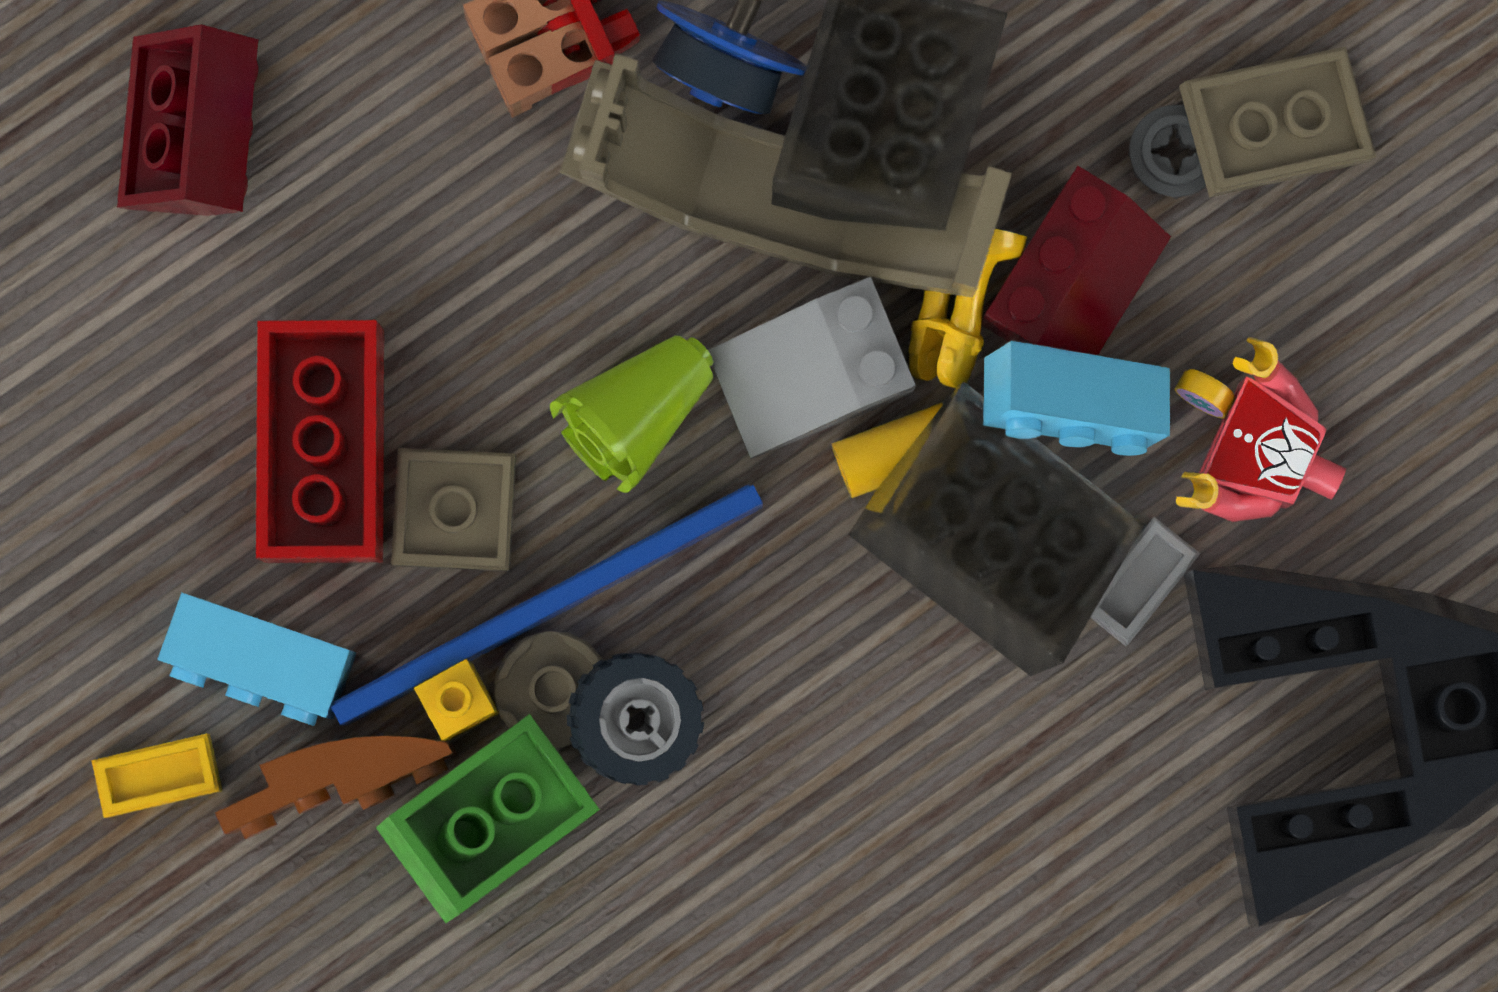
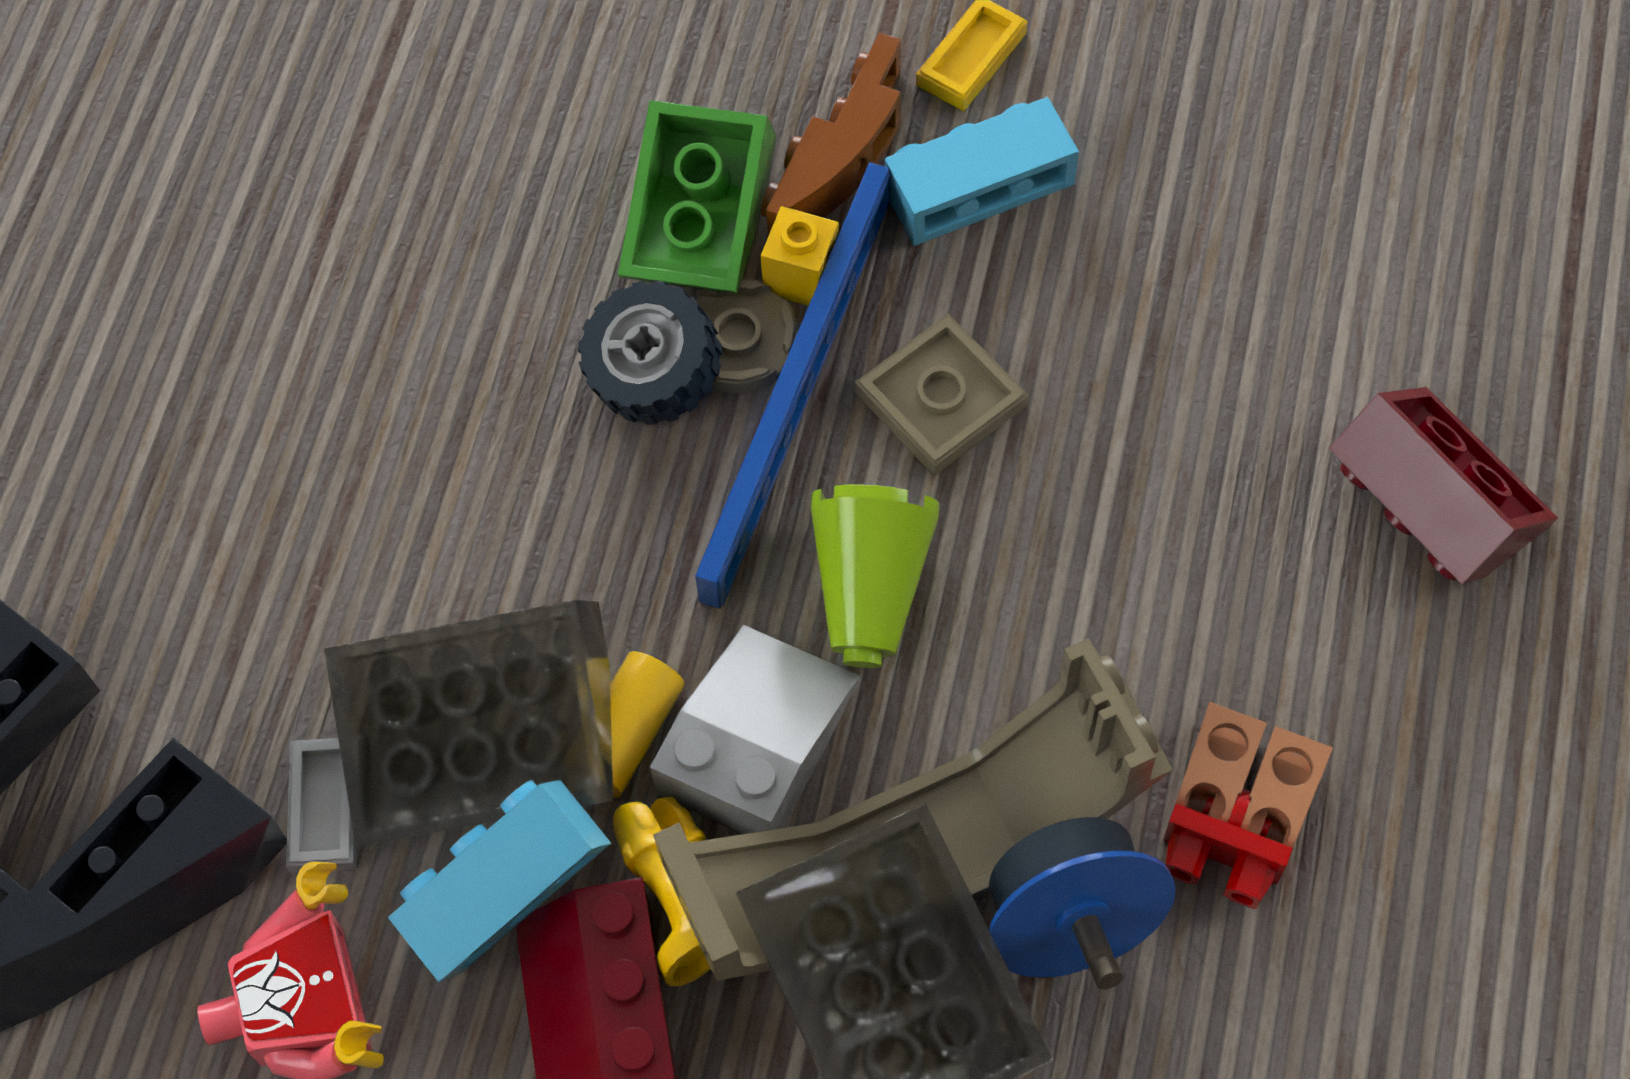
camera: 140 degrees right, 20 degrees down
(320, 441) = (1089, 337): red brick -> none
(1205, 393) = (391, 1000): yellow tile -> none

